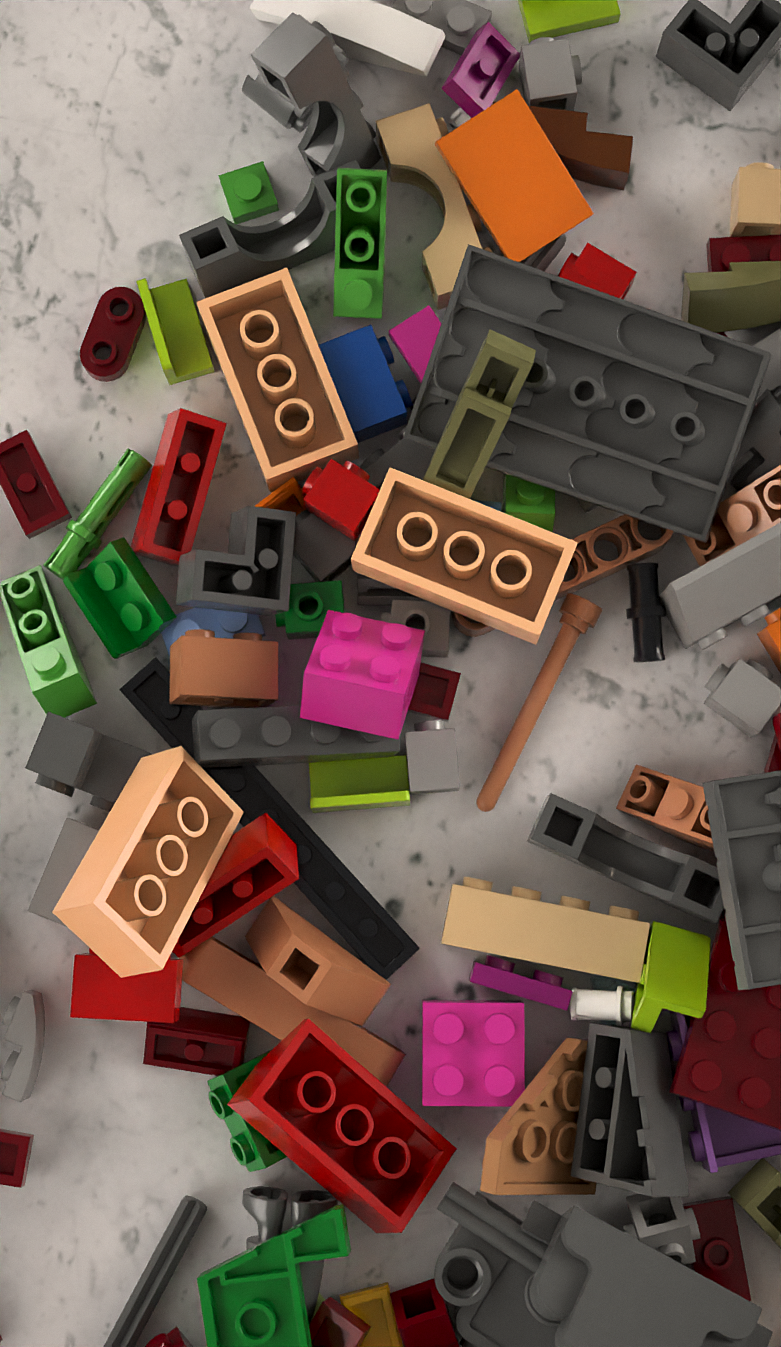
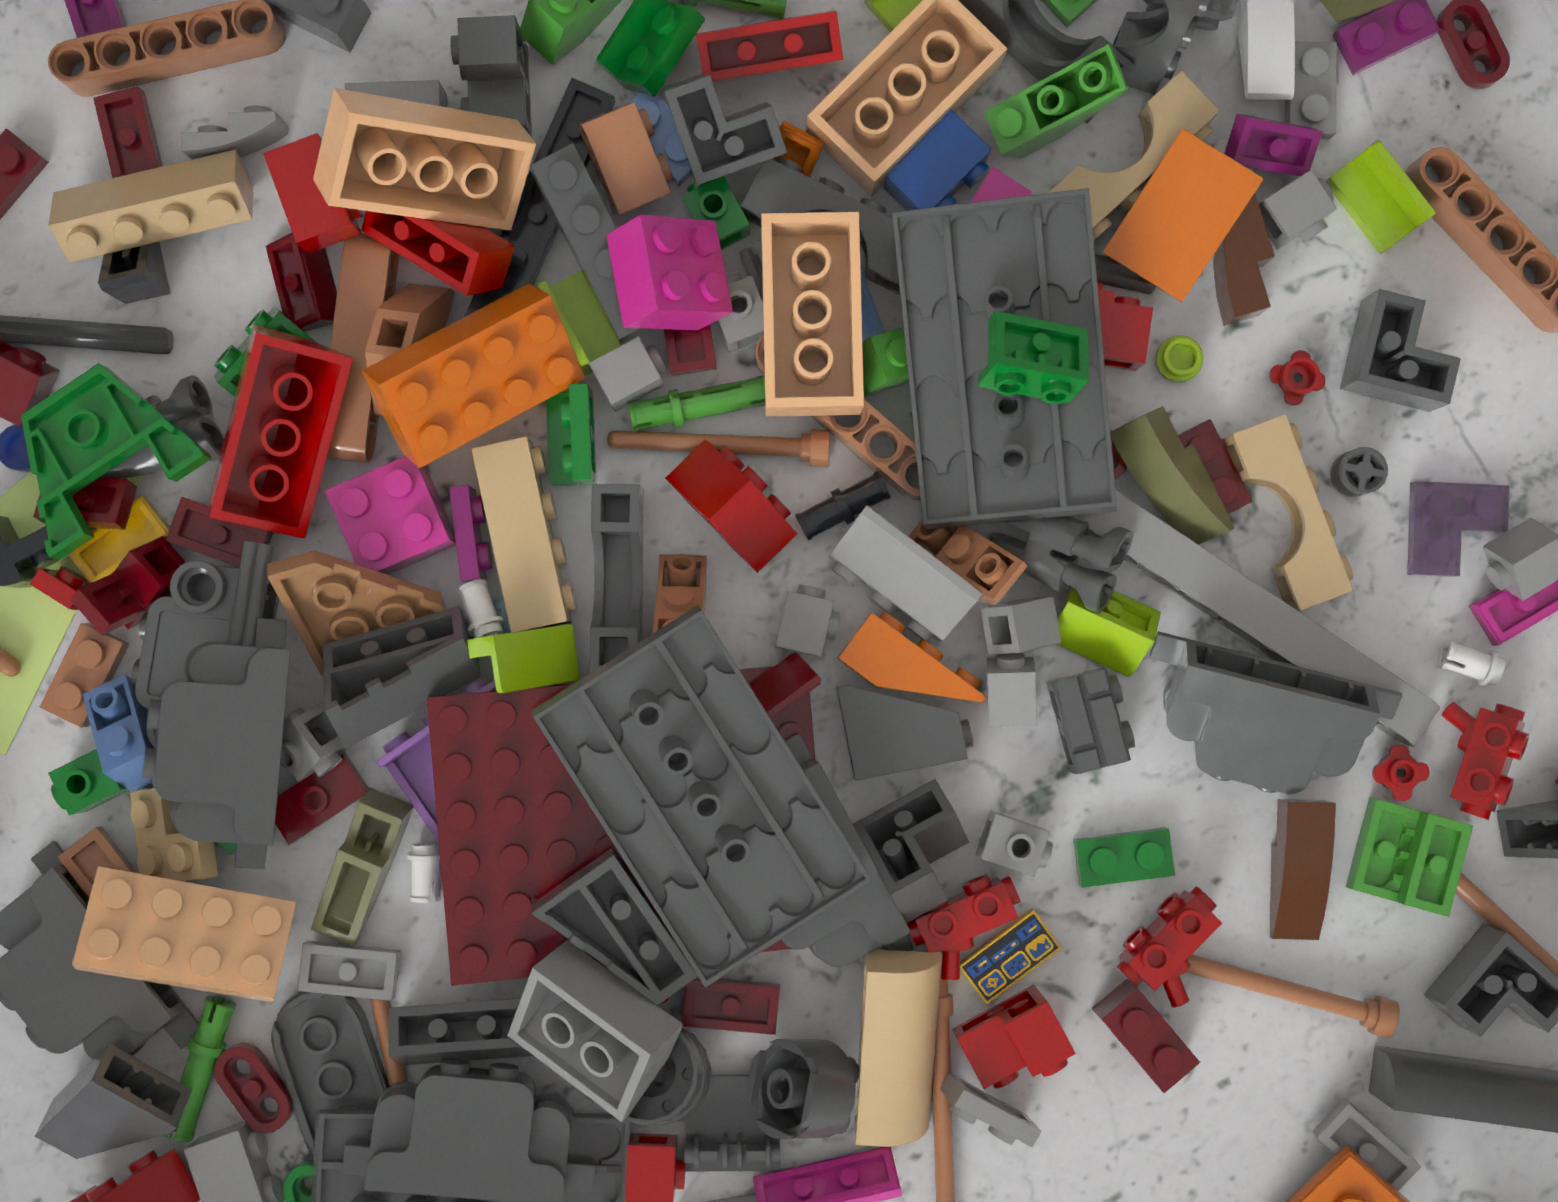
camera: 60 degrees right, 5 degrees up
(58, 1158) = (151, 206): none -> tan brick
(103, 1202) = (134, 274): none -> black slope
(340, 496) = (820, 182): red brick -> none
(376, 906) = (474, 374): none -> orange brick
(401, 1254) = (210, 536): none -> dark red plate
(468, 842) = (571, 437): none -> green bracket
(480, 414) = (939, 267): olive slope -> none
(489, 698) = (695, 404): none -> bright green pin
(602, 713) = (733, 503): none -> red brick
(607, 361) = (1035, 358): none -> green bracket
(639, 242) = (1179, 358): none -> lime plate
(705, 130) = (1310, 377): none -> red plate

